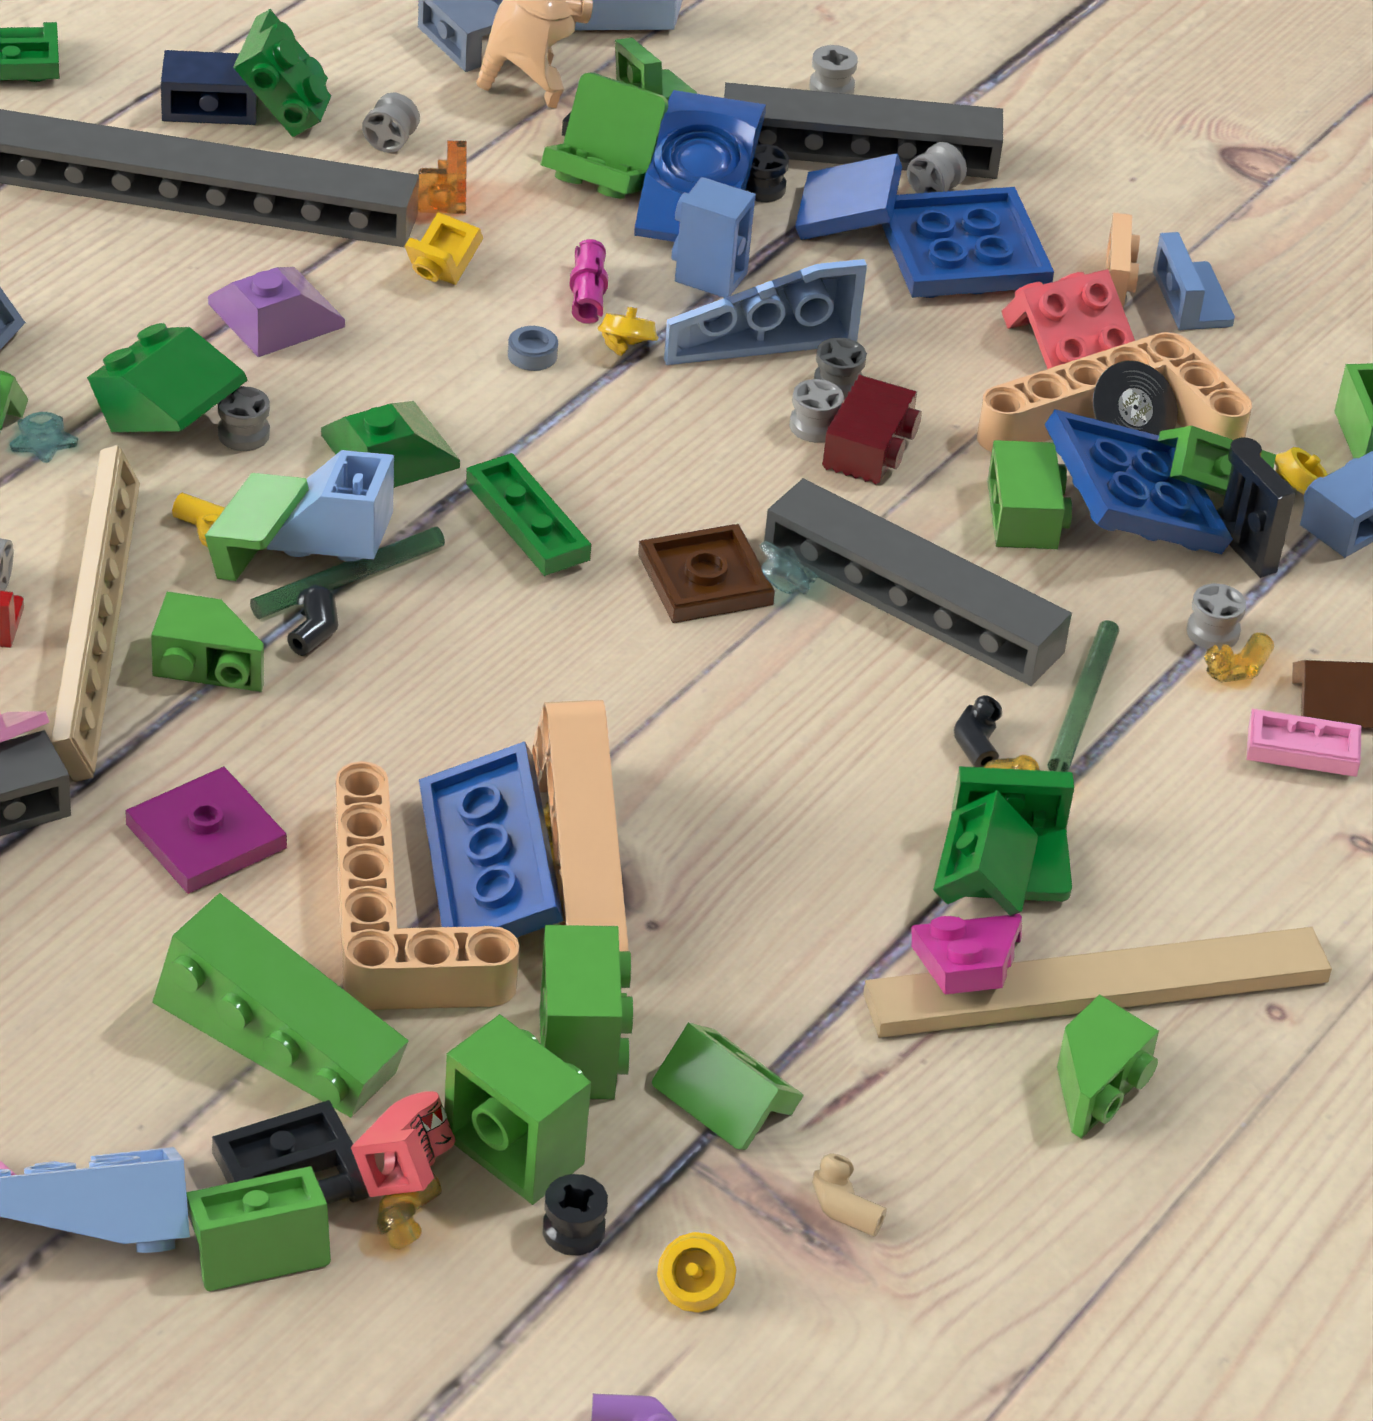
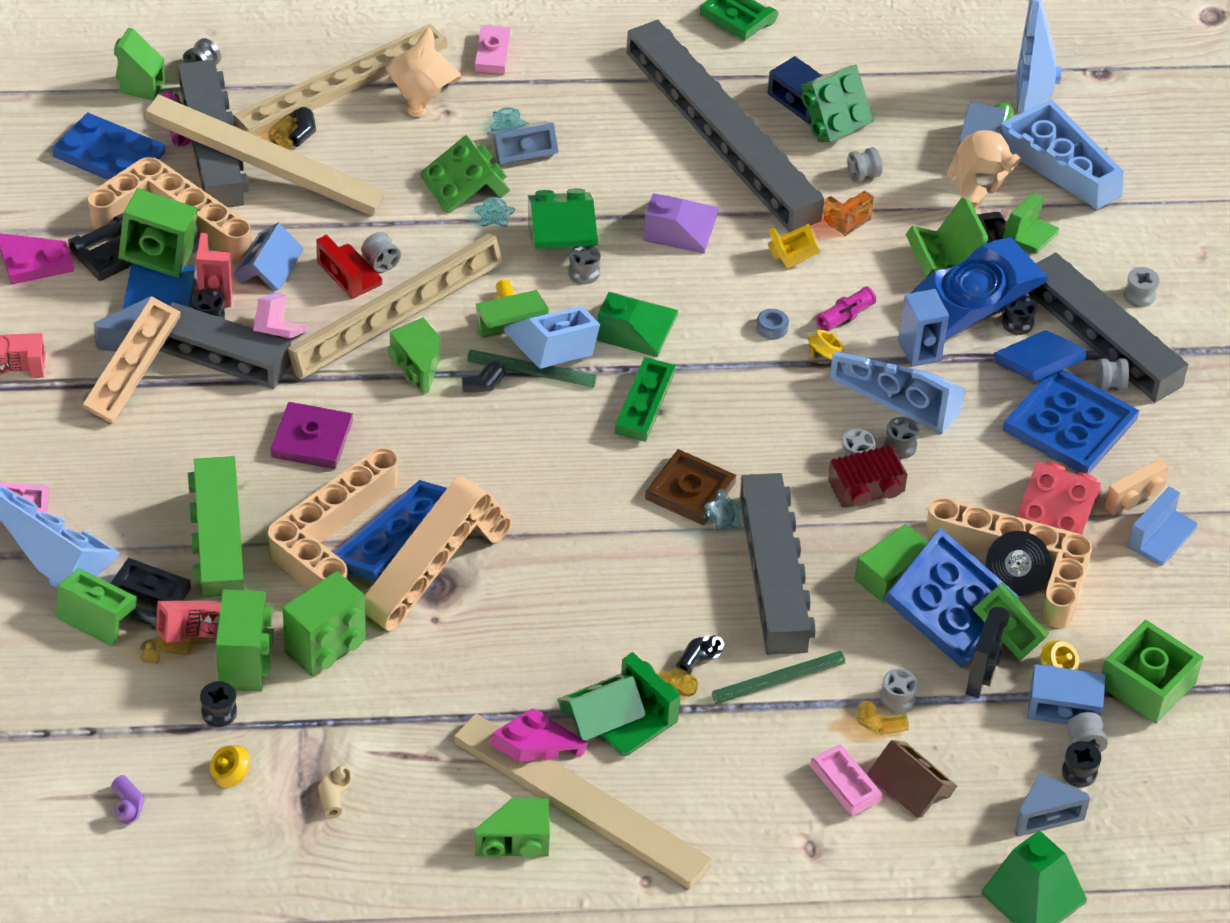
camera: 50 degrees right, 5 degrees up
(722, 1085) = (357, 704): bright green panel -> none

